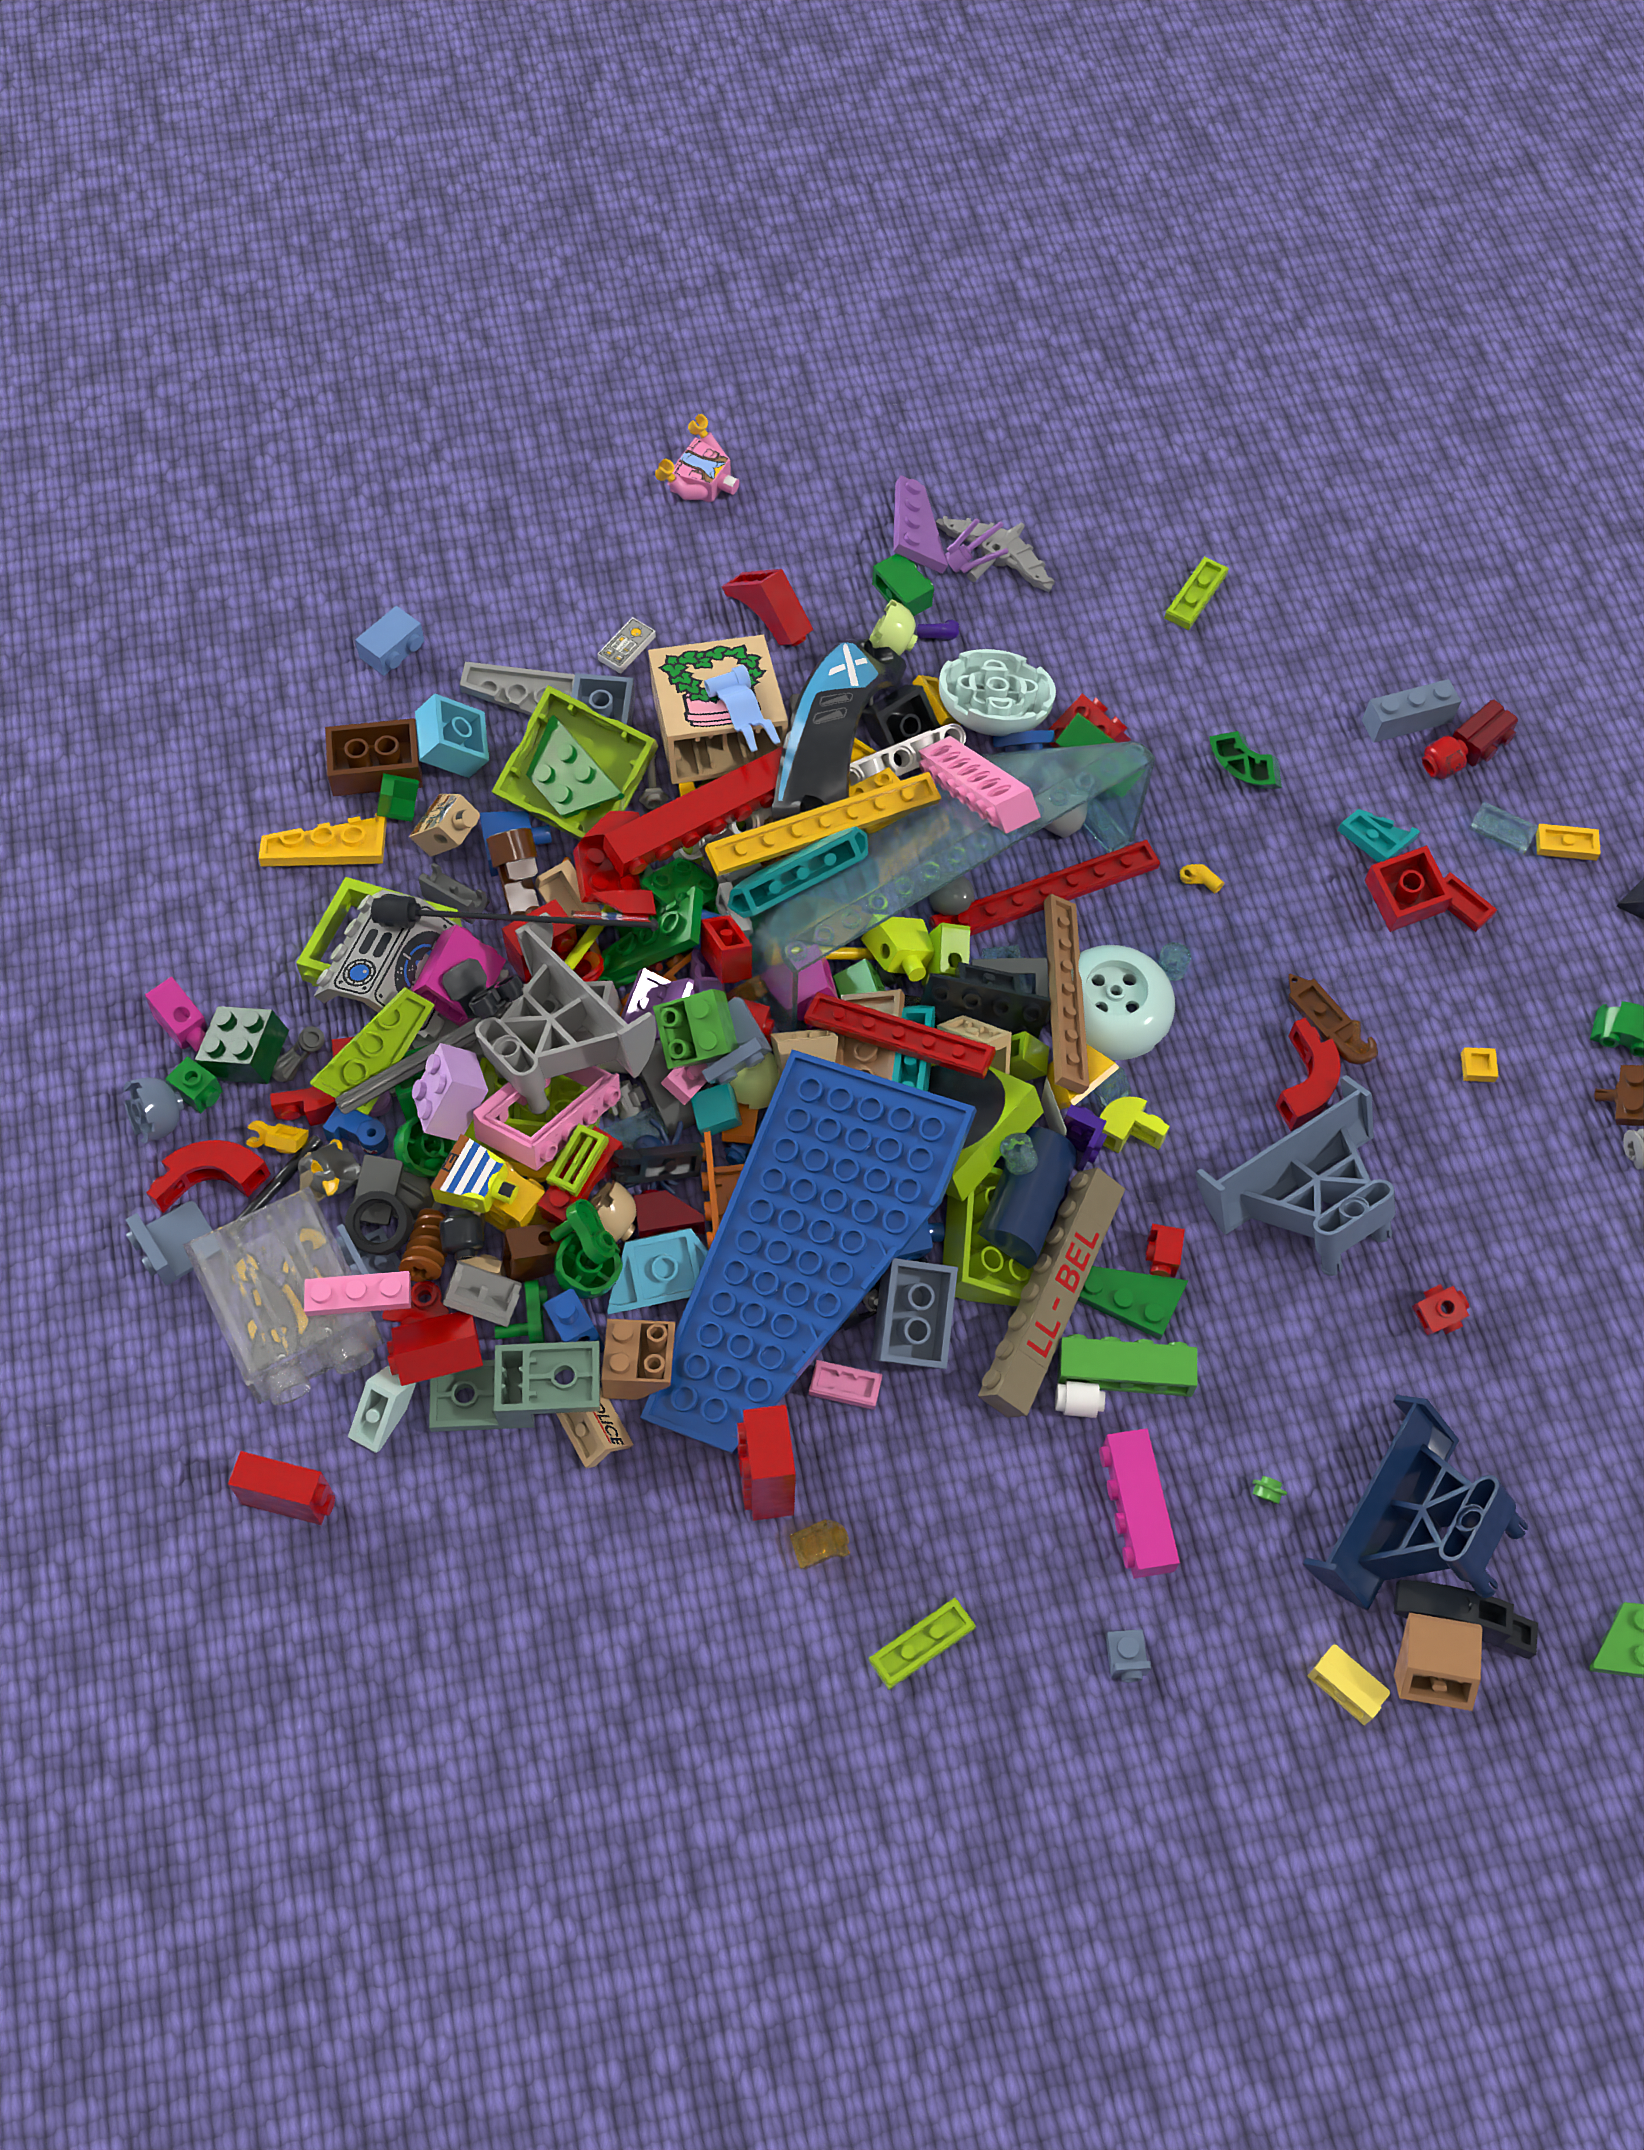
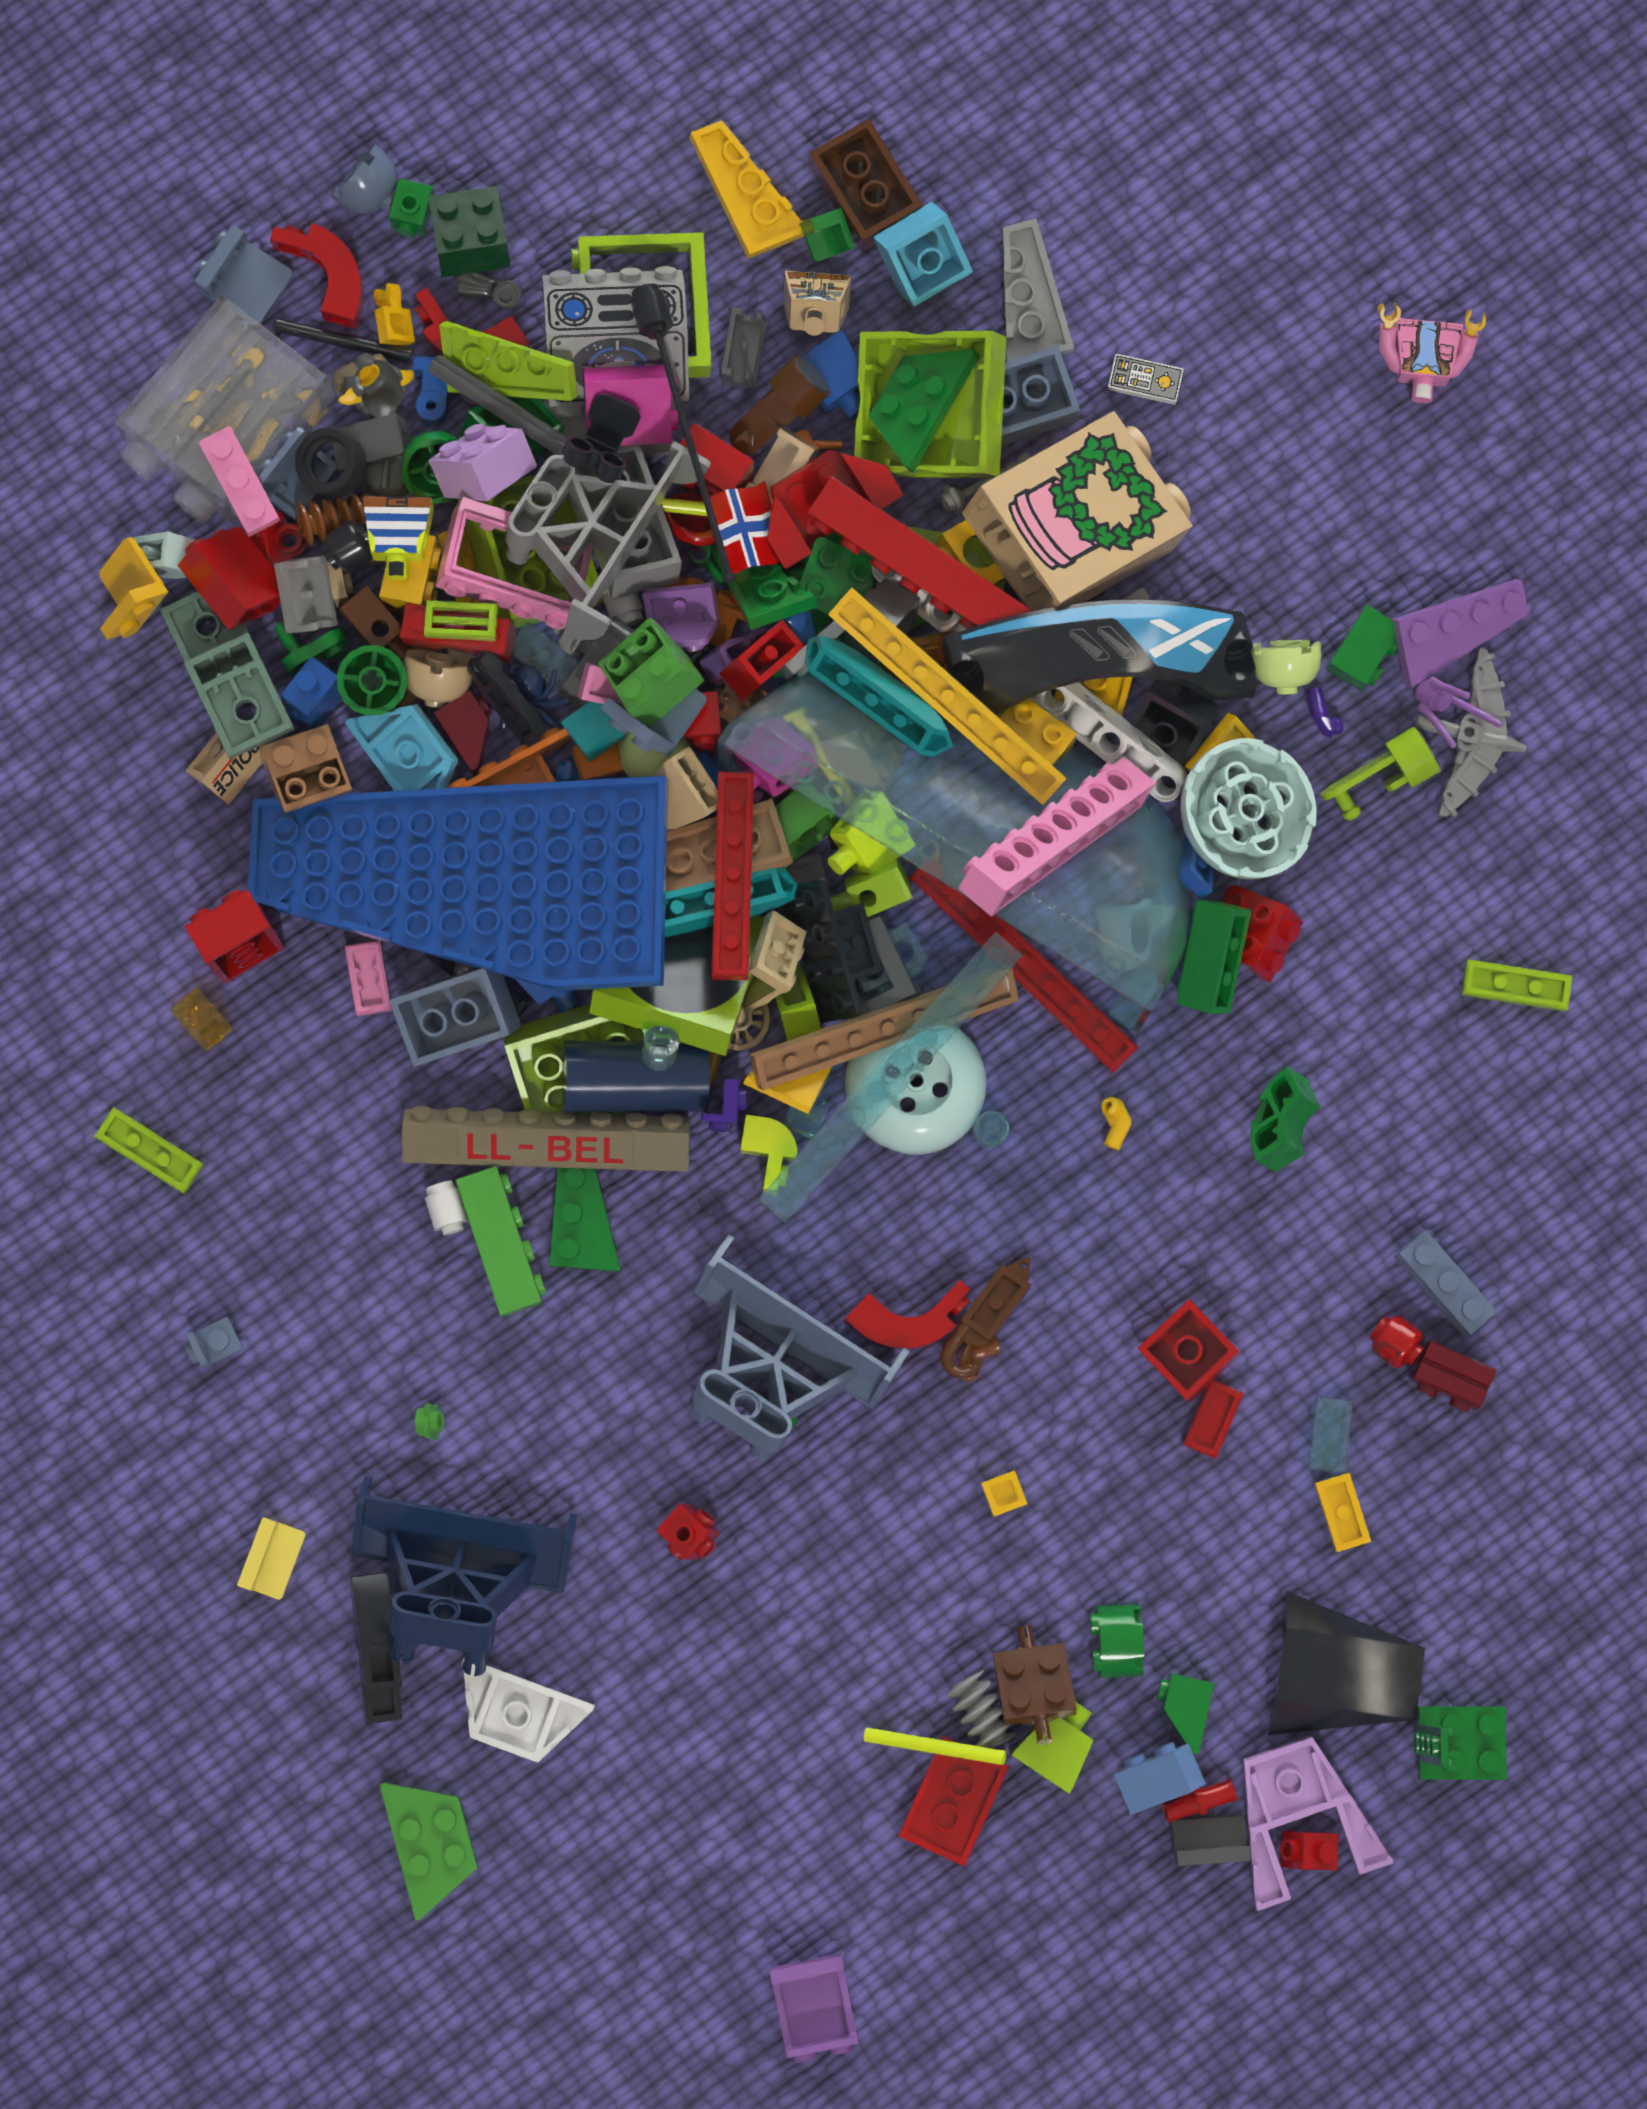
camera: 65 degrees right, 20 degrees up
(177, 1014) = (476, 141): dark pink torso -> none
(281, 1488) = (41, 506): red brick -> none
(390, 640) = (1028, 125): medium blue brick -> none
(397, 1440) = (133, 587): none -> yellow bracket
(585, 1221) = (400, 660): green piece -> none
(741, 703) = (1054, 544): light blue flag -> none
(774, 602) = (1262, 510): red arch -> none
(1002, 593) = (1411, 757): none -> lime piece
(1052, 1111) = (734, 1071): white sticker -> none
(1114, 1003) = (890, 1077): none -> clear light blue plate
(1140, 1503) = (364, 1302): dark pink brick -> none
(1164, 1250) = (639, 1236): red brick -> none
(1376, 835) = (1255, 1298): teal wing -> none
(1439, 1662) = (315, 1631): medium nougat slope -> none
(1560, 1518) = (519, 1713): none -> white wing

